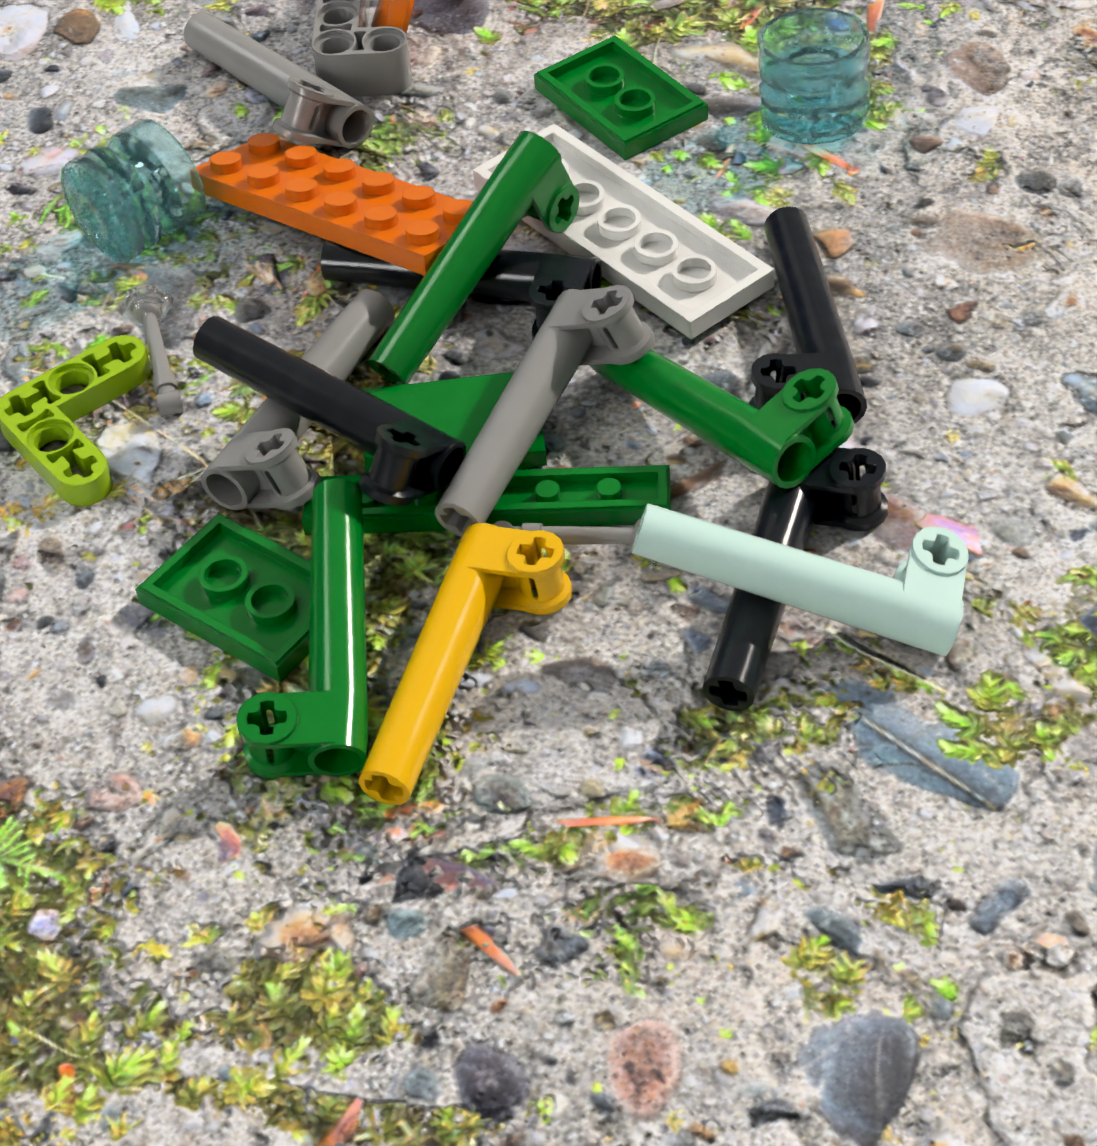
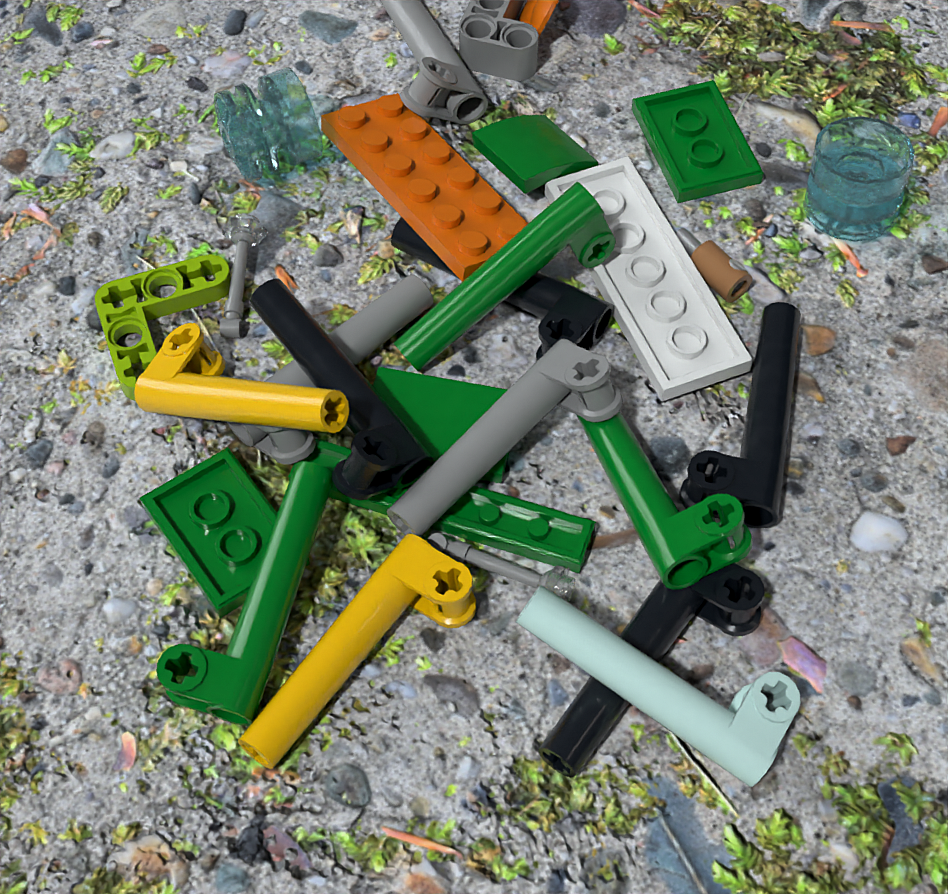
camera: 15 degrees right, 10 degrees up
(144, 458) = (187, 386): none -> yellow axle
(439, 147) = (531, 150): none -> green slope
(704, 201) = (716, 267): none -> medium nougat piece

